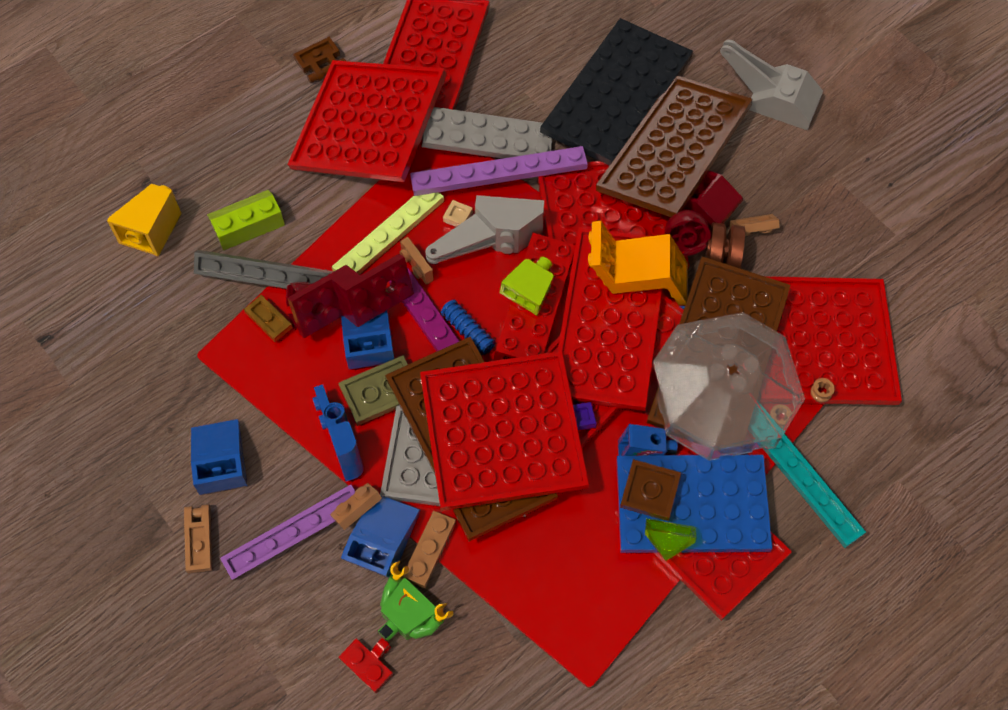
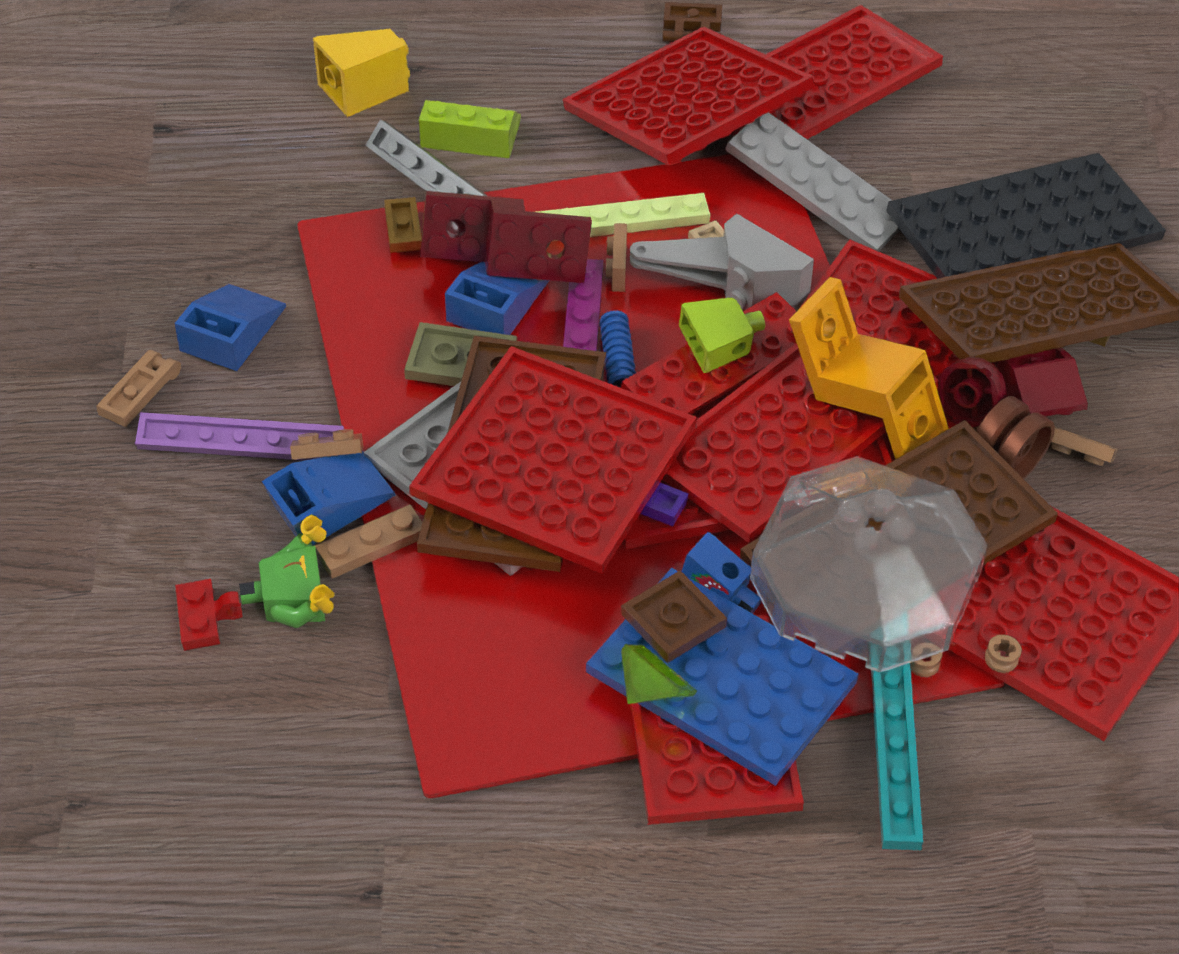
camera: 35 degrees right, 15 degrees down
(340, 434) = (366, 368): blue plate -> none
(498, 171) = (798, 219): medium lavender plate -> none

